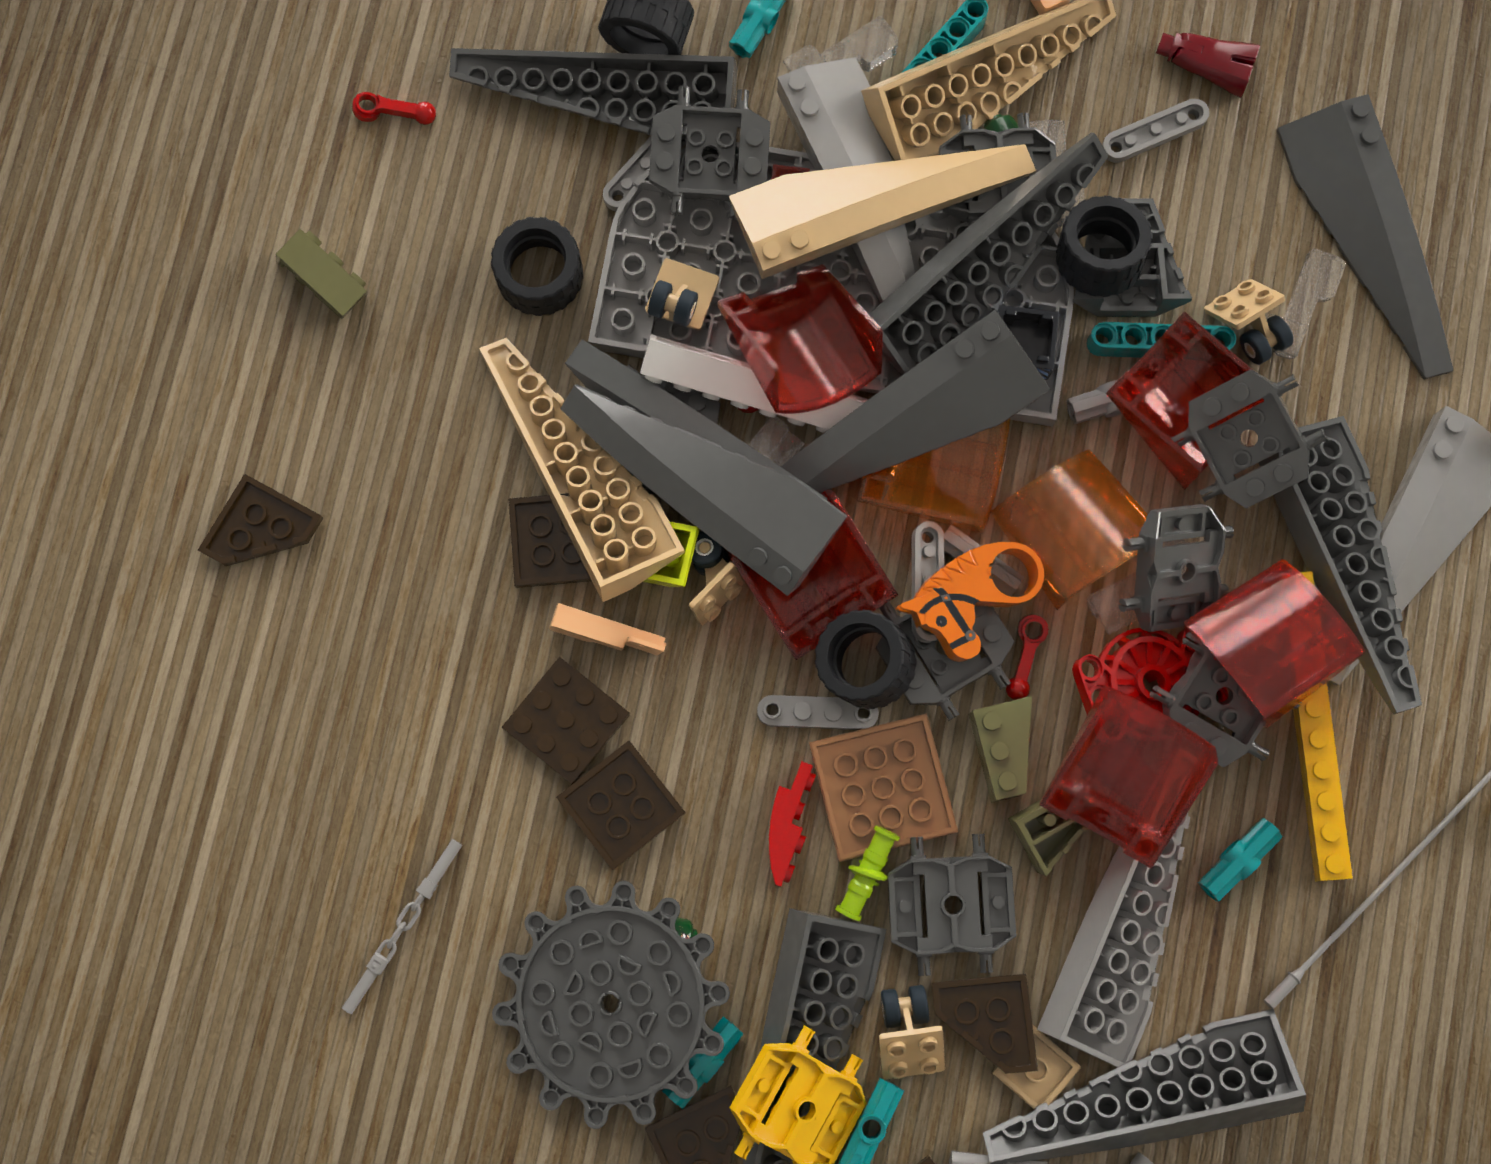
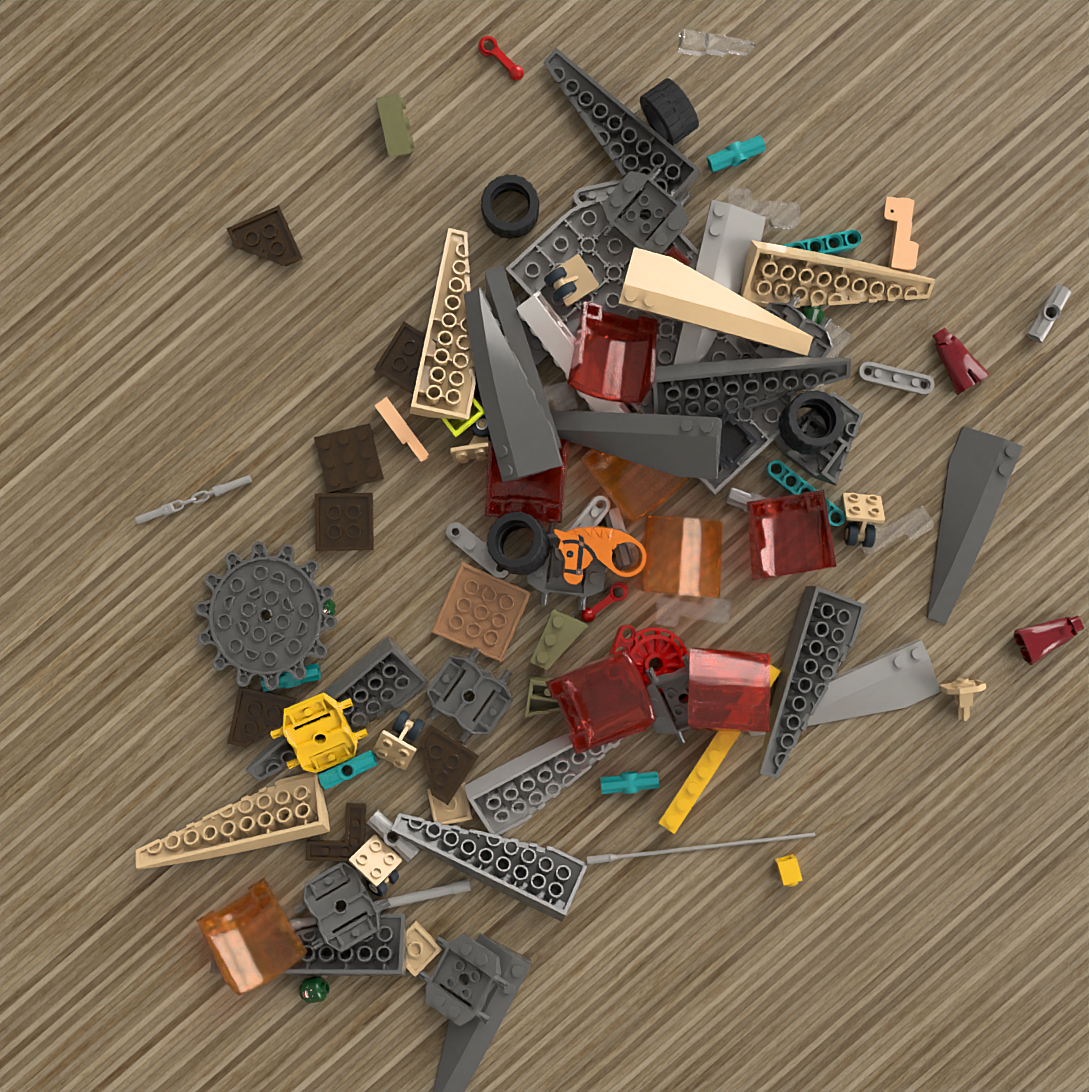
camera: 40 degrees right, 10 degrees up
(783, 835) = (412, 598): red slope -> none
(867, 873) = (440, 649): lime piece -> none
(1161, 593) = (694, 625): dark grey piece -> none
(1228, 454) = (787, 580): dark grey piece -> none

